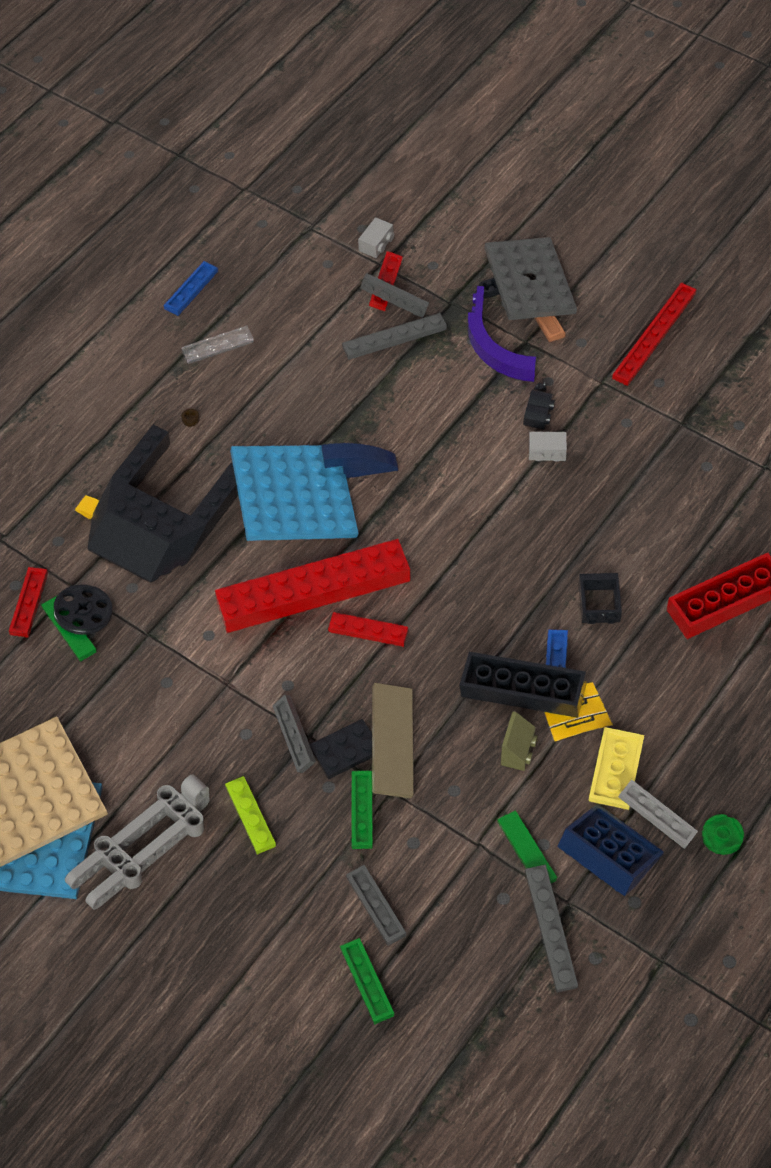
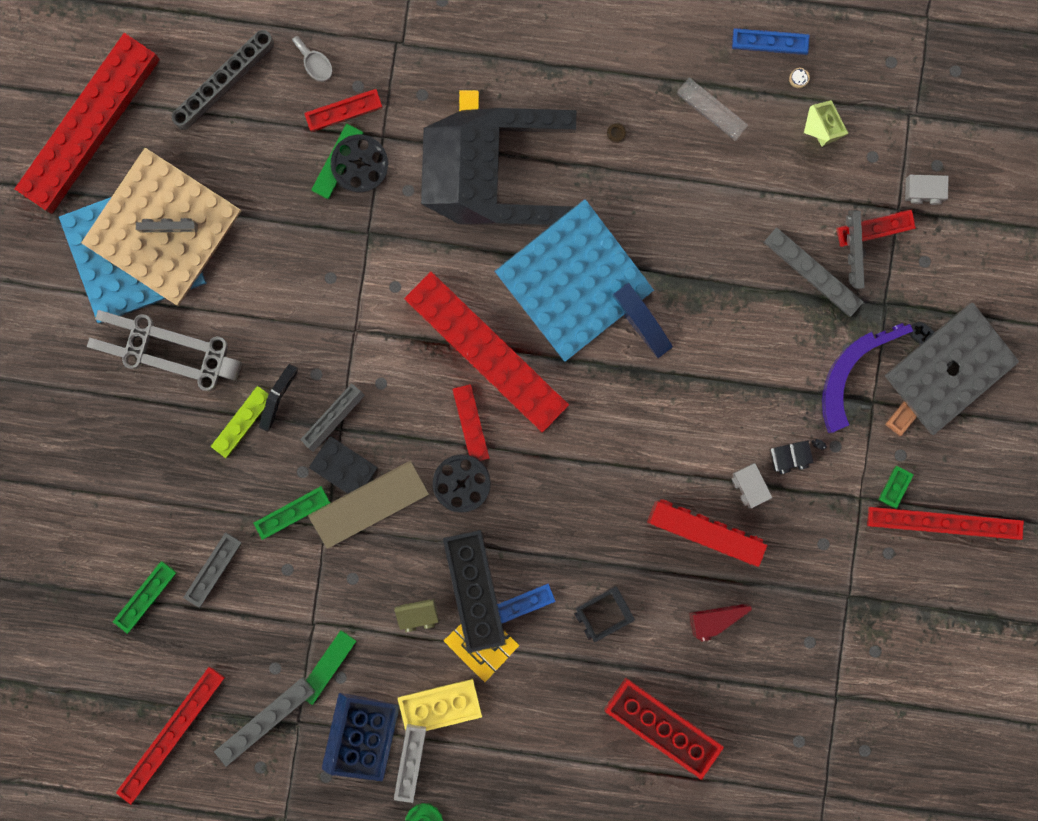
camera: 60 degrees right, 30 degrees up
(30, 776) = (166, 225): none -> dark grey plate
(233, 282) = (799, 78): none -> tile
(243, 757) = (275, 396): none -> black beam
(282, 279) = (825, 123): none -> yellowish green slope
(413, 664) = (471, 485): none -> black wedge
(520, 1025) = (170, 735): none -> red plate
(569, 490) = (708, 534): none -> red brick
(605, 352) = (895, 487): none -> green plate
(650, 517) = (714, 621): none -> dark red slope

